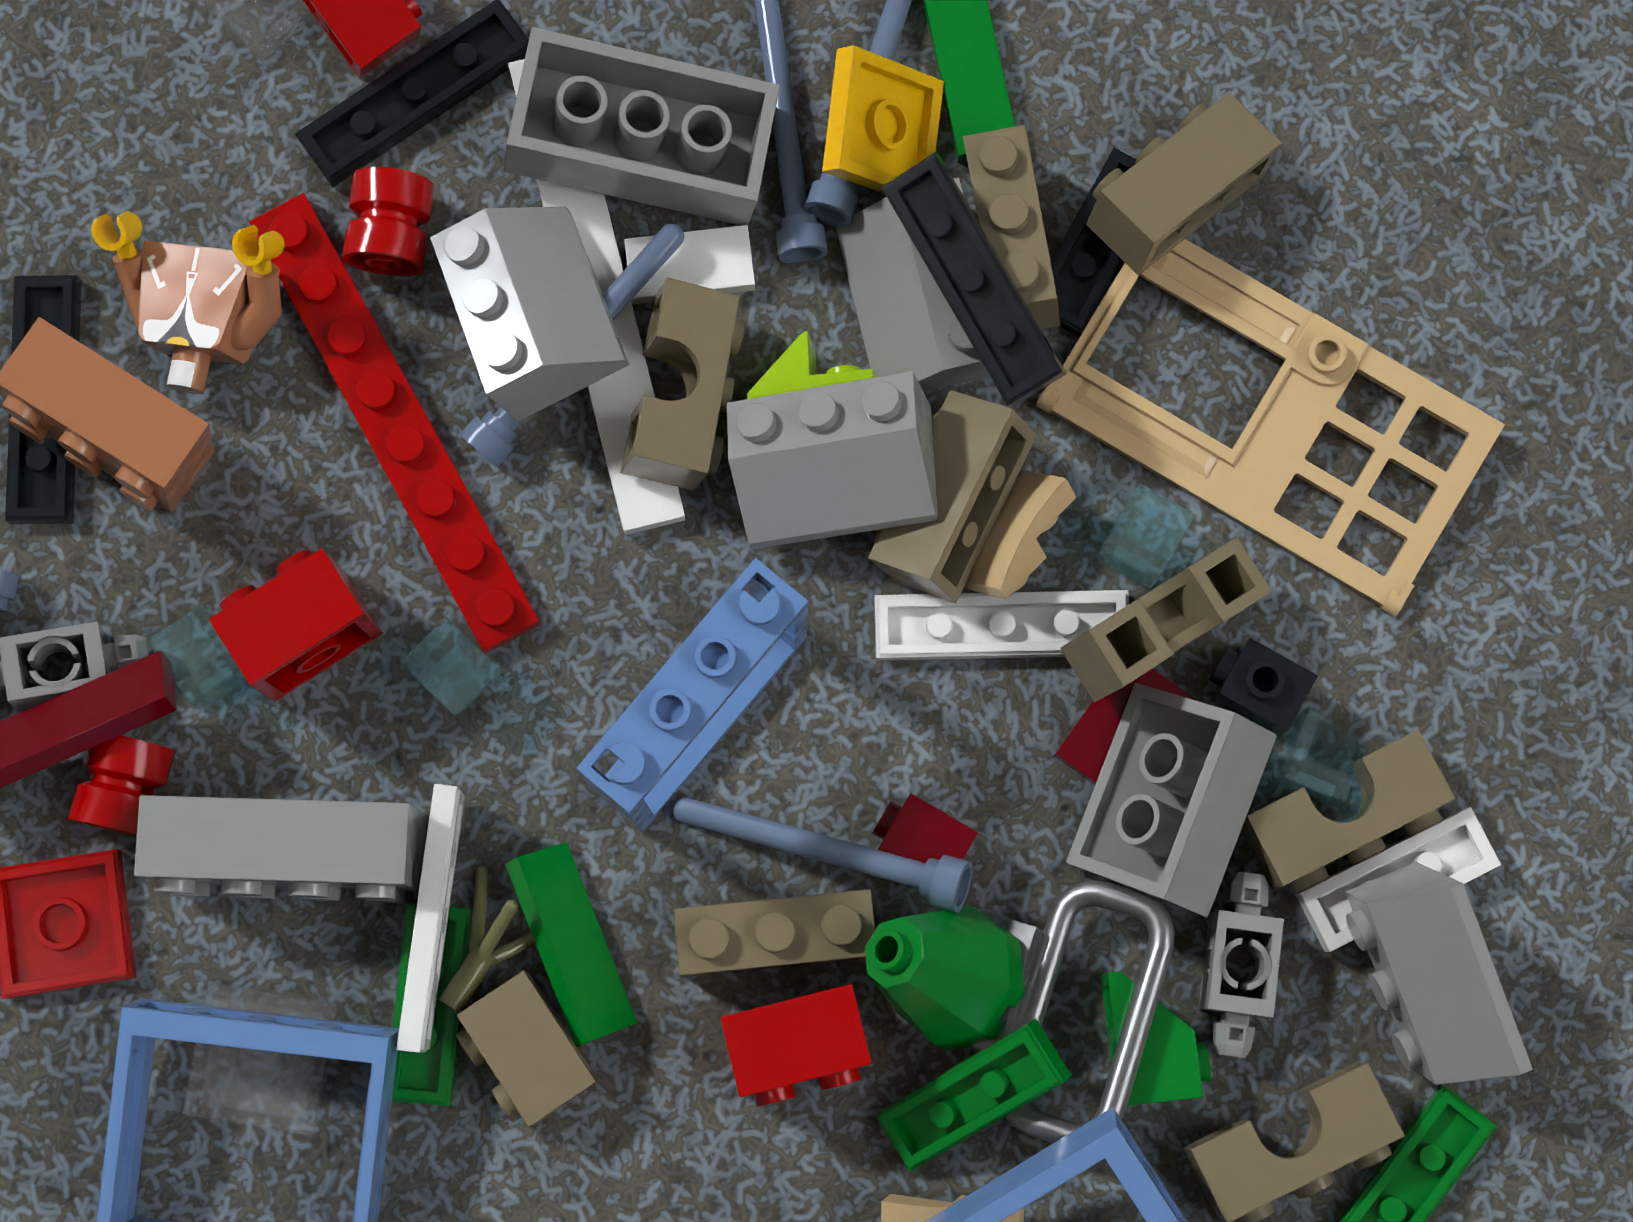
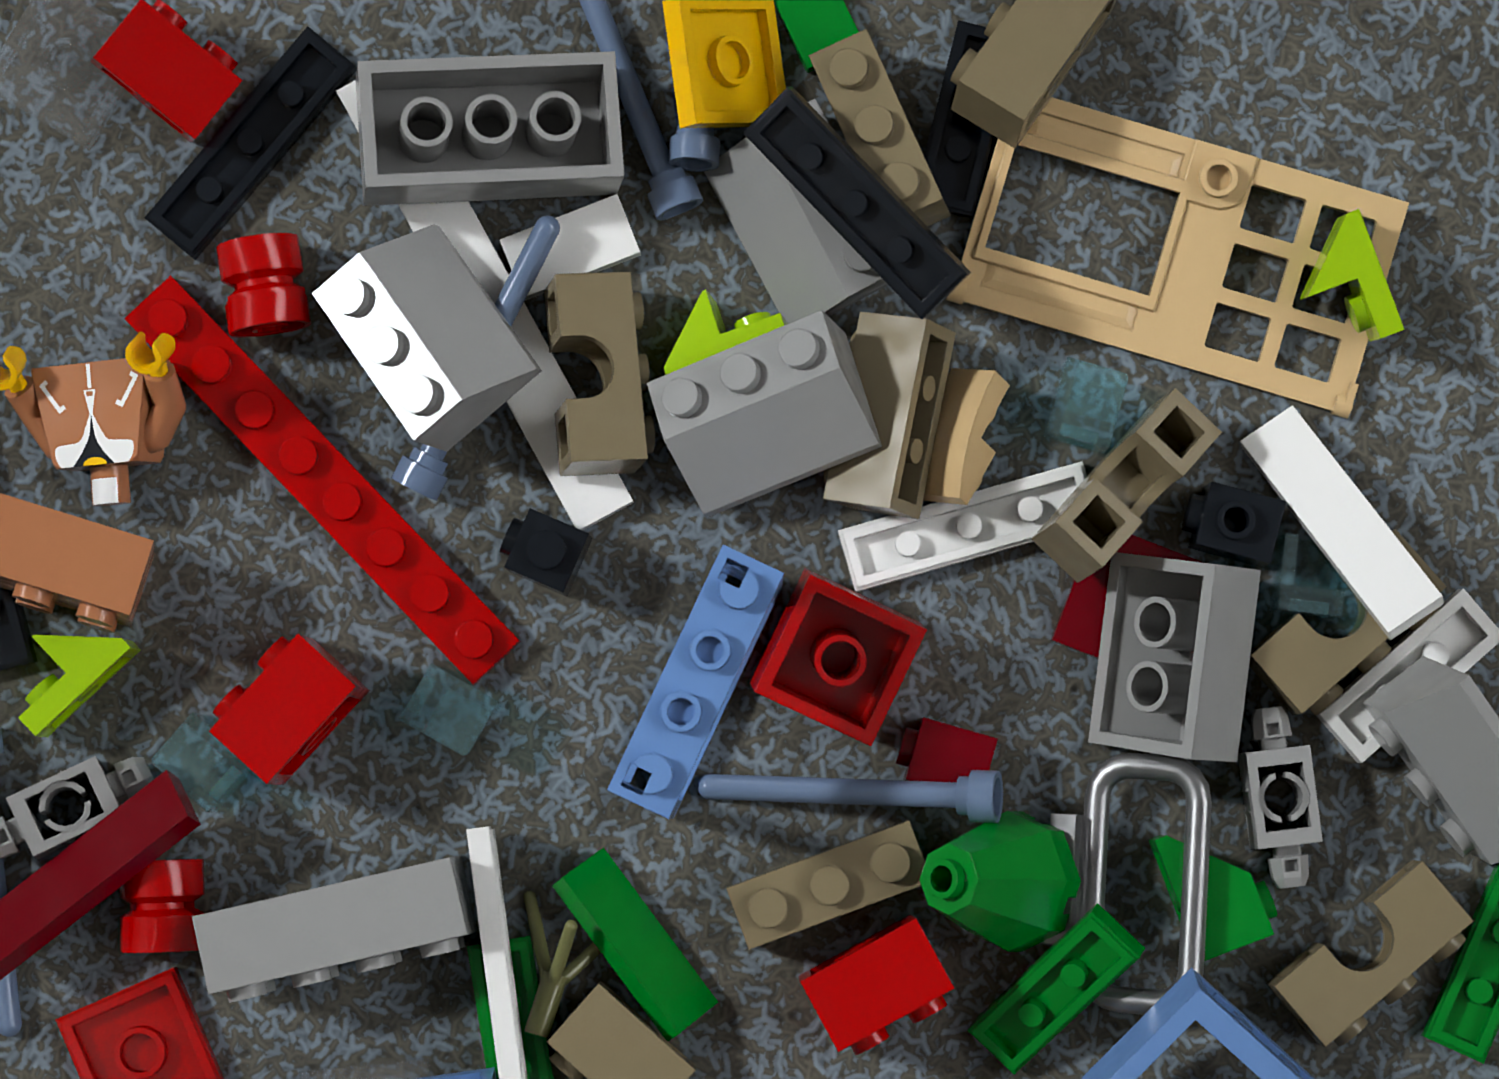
camera: 10 degrees left, 5 degrees up
(116, 539) = (87, 667): none -> lime slope
(587, 540) = (545, 551): none -> black brick
(843, 714) = (837, 657): none -> red brick
(1368, 712) = (1342, 523): none -> white tile
(1439, 463) = (1353, 260): none -> lime slope

